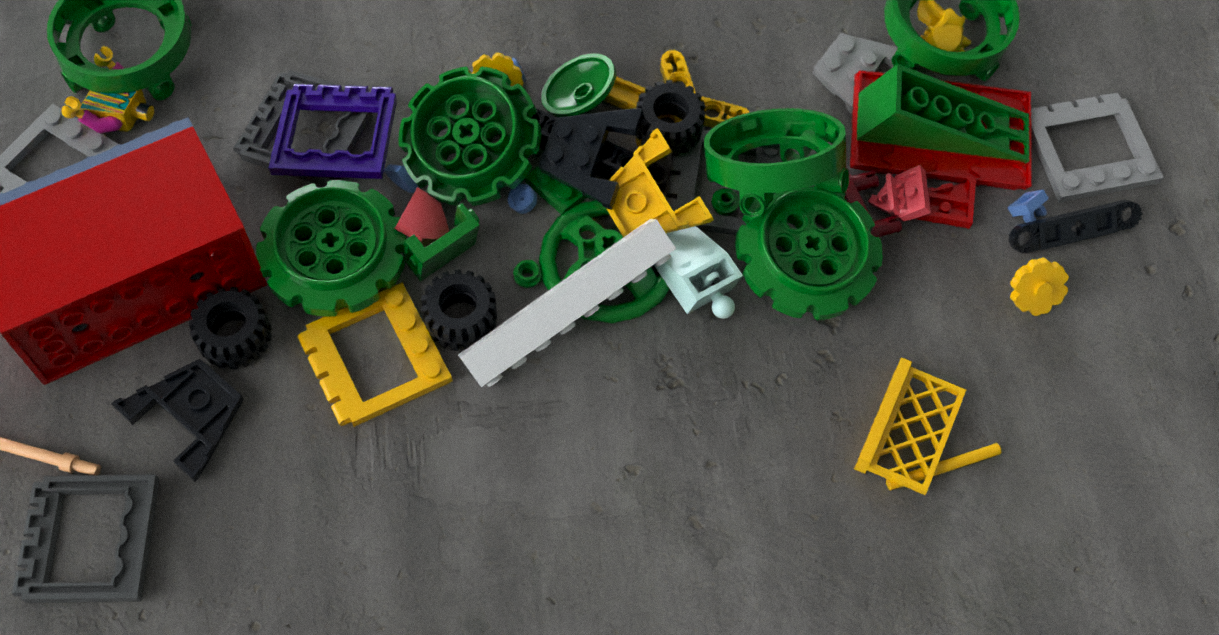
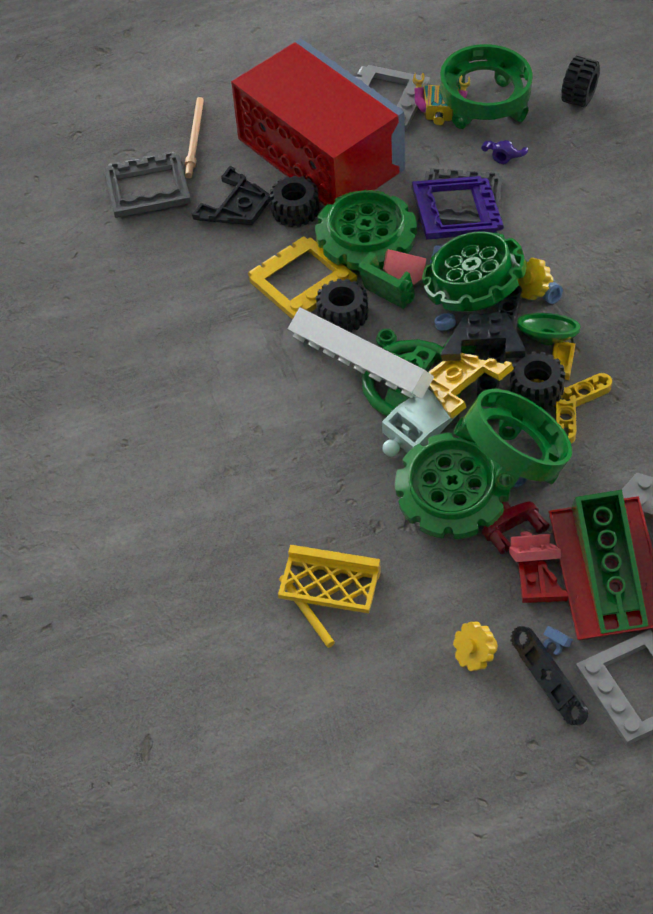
camera: 85 degrees right, 10 degrees down
(242, 56) = (503, 151): none -> dark purple piece

